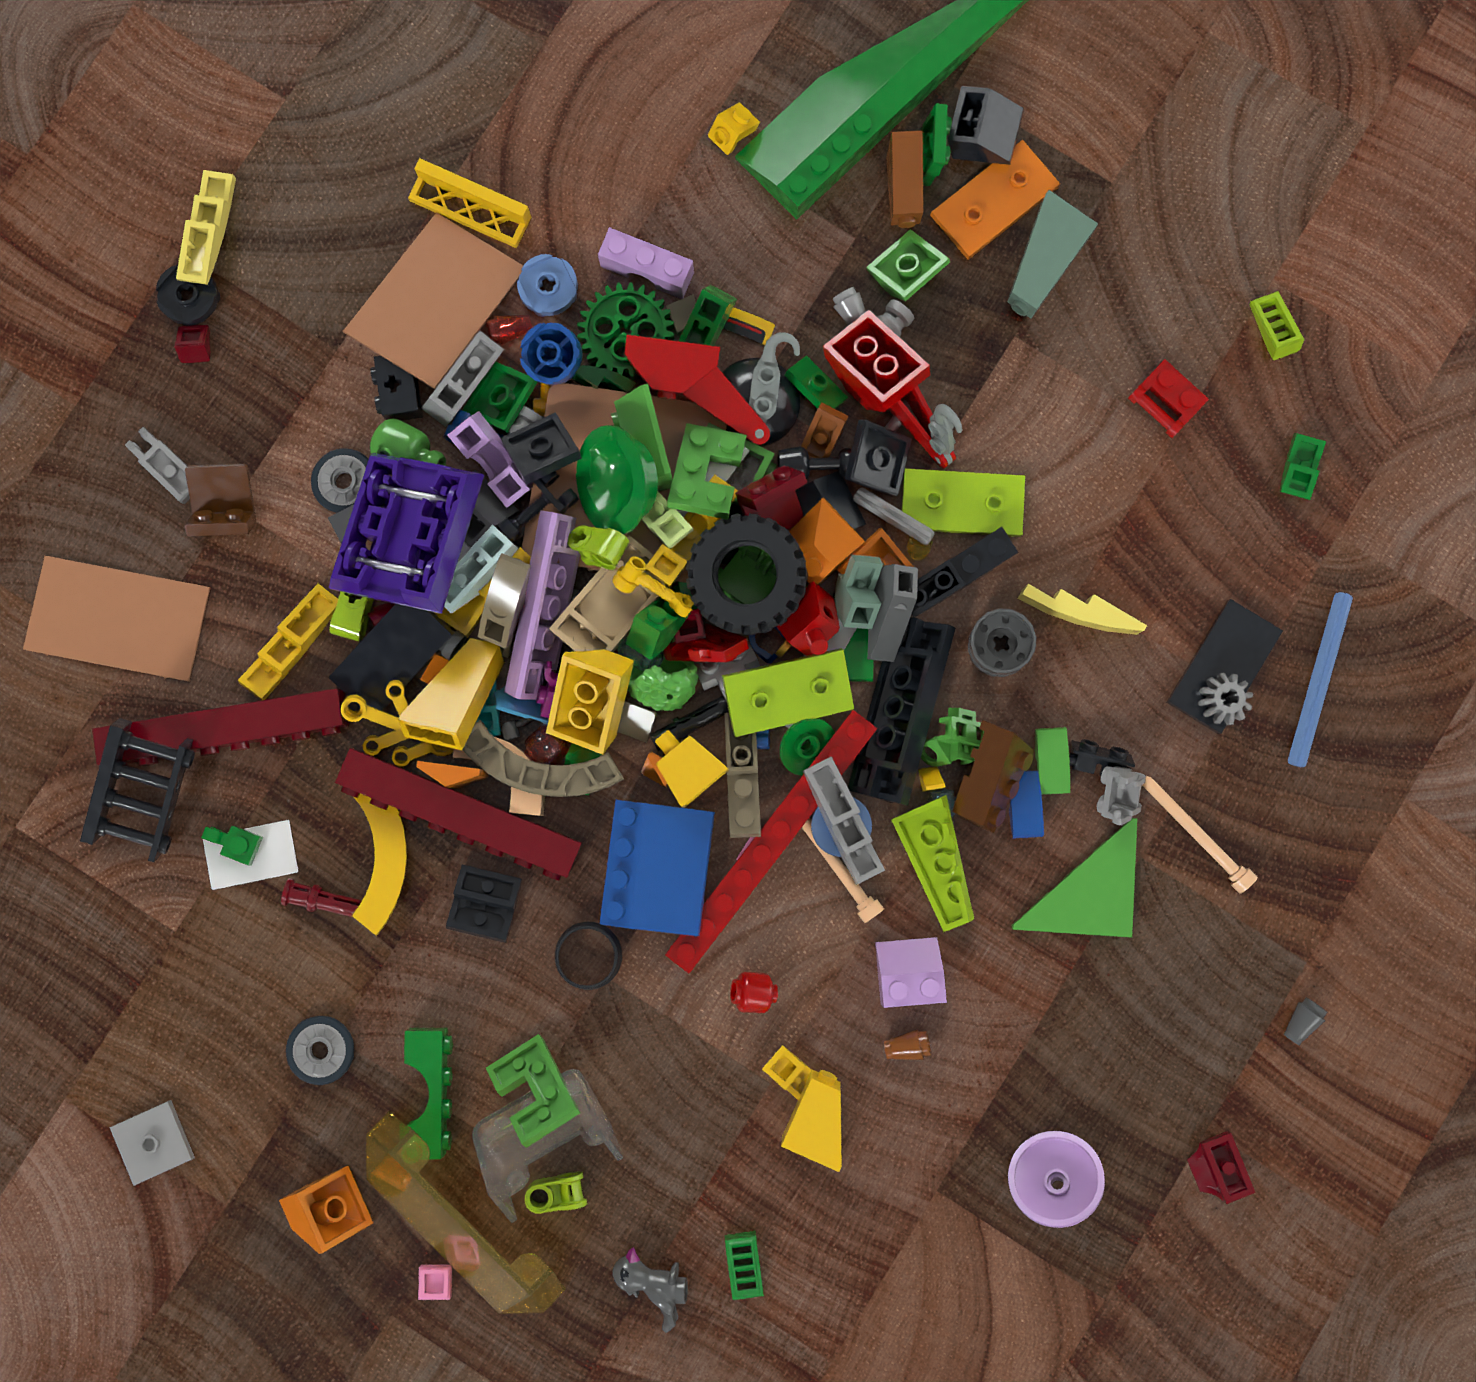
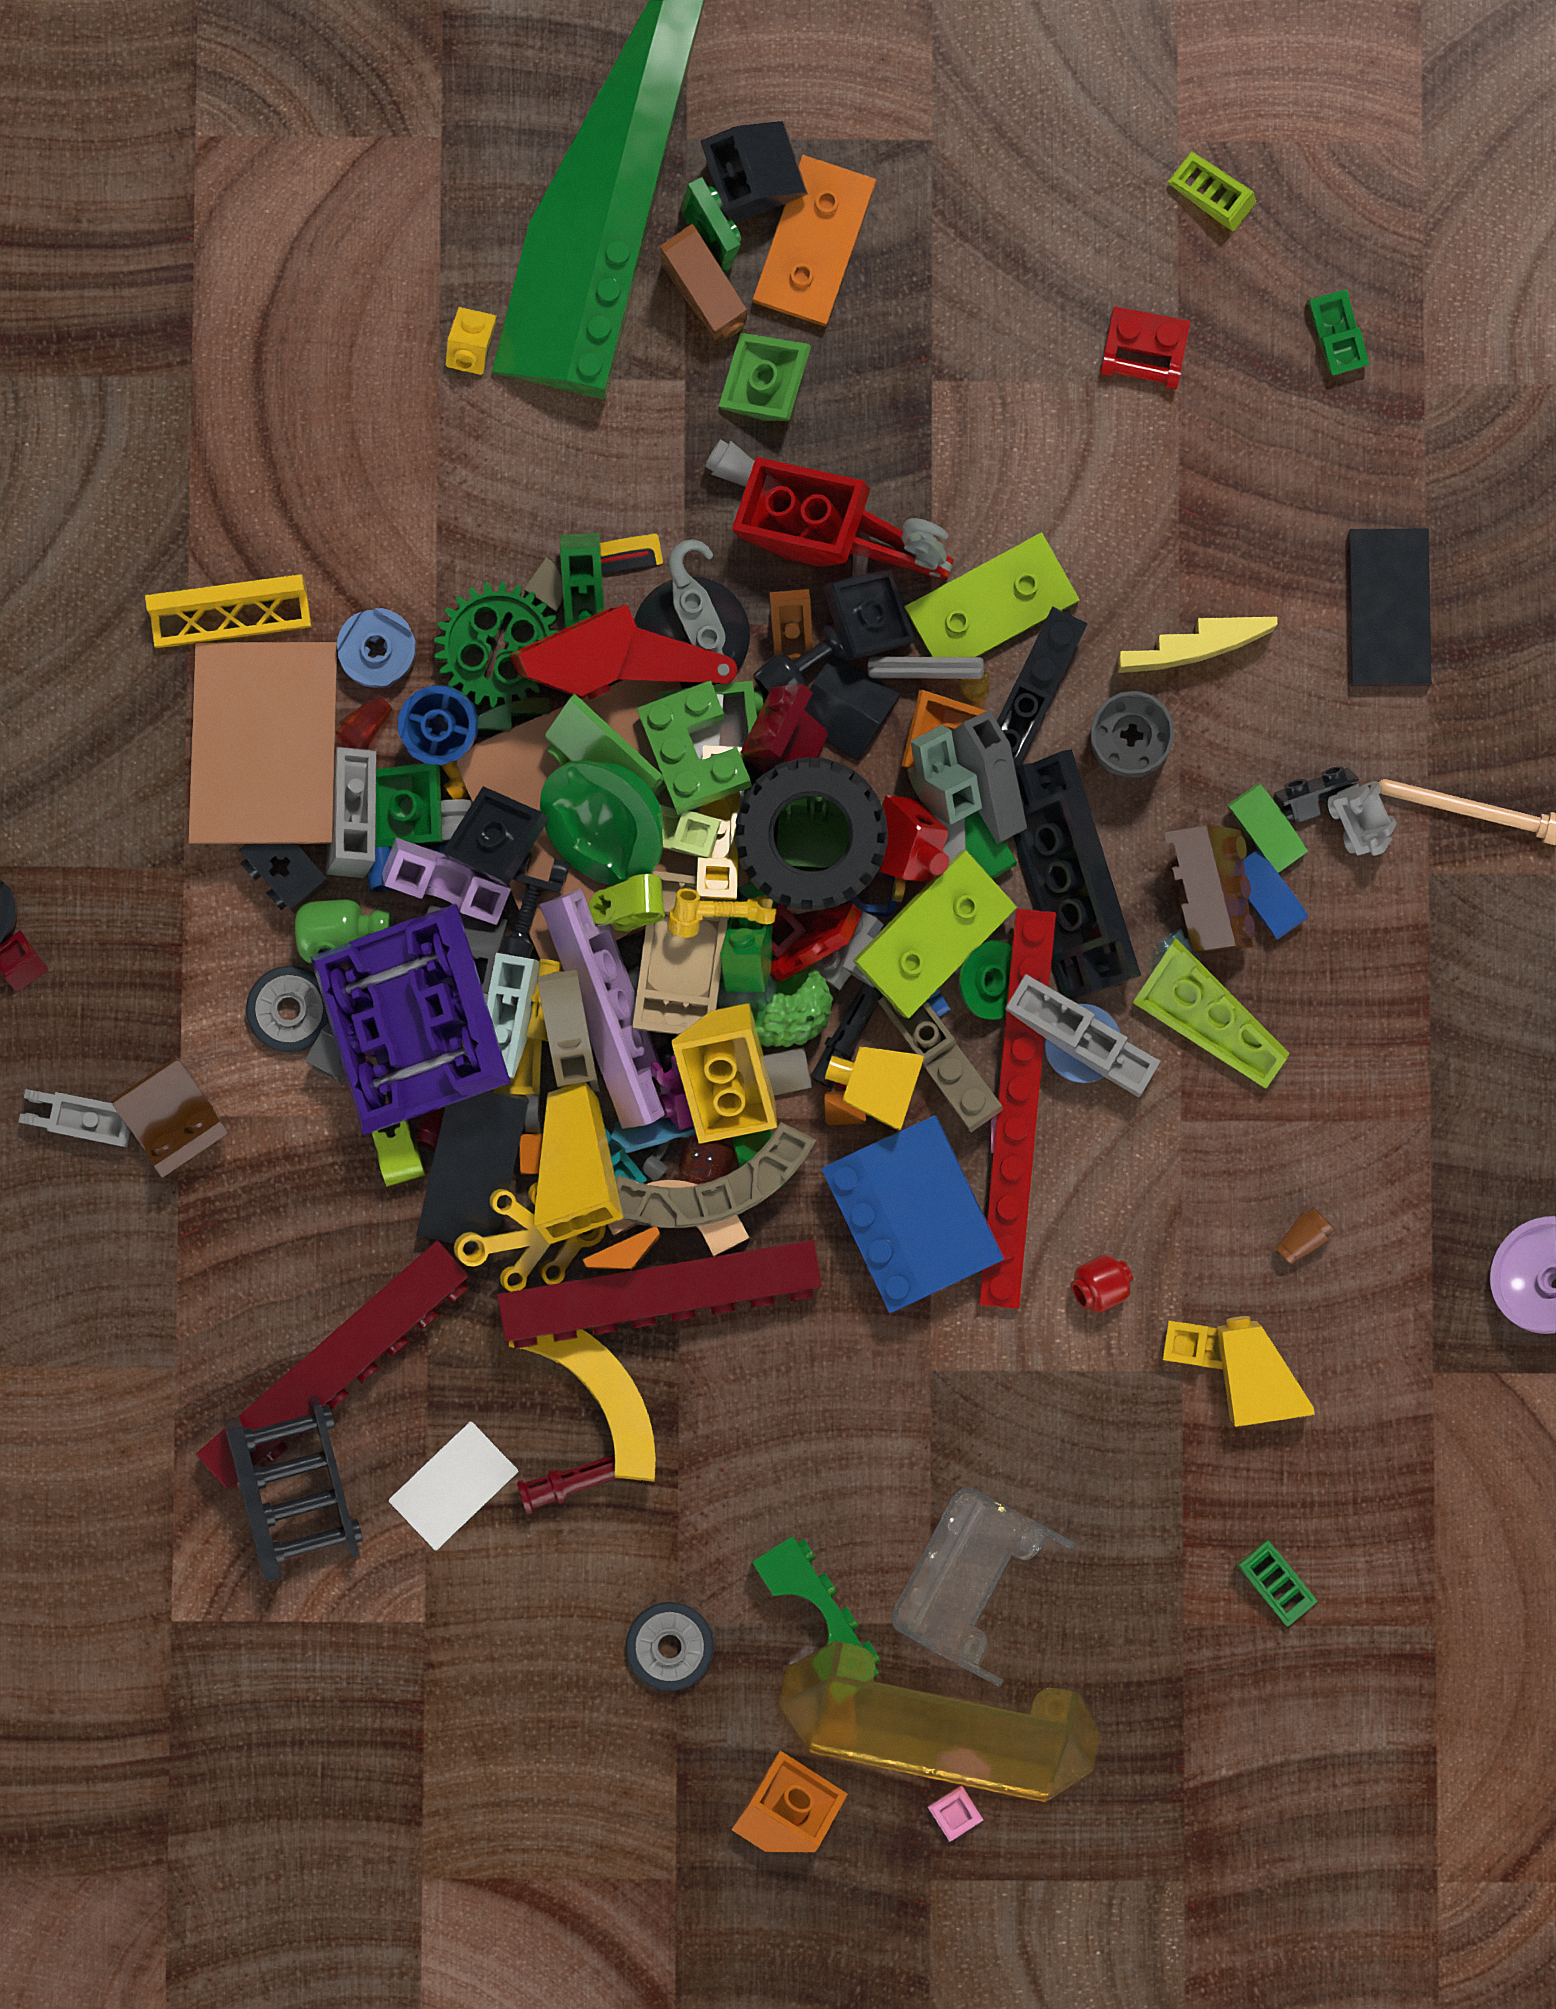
camera: 35 degrees left, 0 degrees up
(116, 618) = (133, 1321): nougat piece -> none
(152, 1142) = (551, 1861): light grey plate -> none
(237, 844) = (434, 1482): green plate -> none
(290, 642) = (347, 1224): yellow slope -> none
(484, 903) = (746, 1374): black slope -> none
(553, 1101) = (962, 1531): bright green plate -> none
(558, 1193) = (1028, 1631): lime piece -> none
(612, 938) = (856, 1360): black tyre -> none
(631, 255) = (493, 550): lavender arch -> none
(660, 1286) = (1201, 1659): dark grey animal -> none
(815, 384) = (747, 574): green plate -> none
(825, 541) = (868, 741): orange slope -> none
(867, 906) = (1165, 1113): light nougat piece -> none
(896, 316) = (789, 445): light grey wheel -> none
(910, 972) = (1256, 1154): lavender slope -> none
(931, 779) = (1148, 931): yellow piece -> none
(951, 745) = (1147, 880): bright green piece -> none
(1051, 248) = (911, 260): sand green slope -> none
(1094, 895) = (1402, 947): bright green tile -> none
(1237, 697) = (1400, 632): light grey gear -> none
(1320, 679) = (1502, 556): medium blue axle -> none

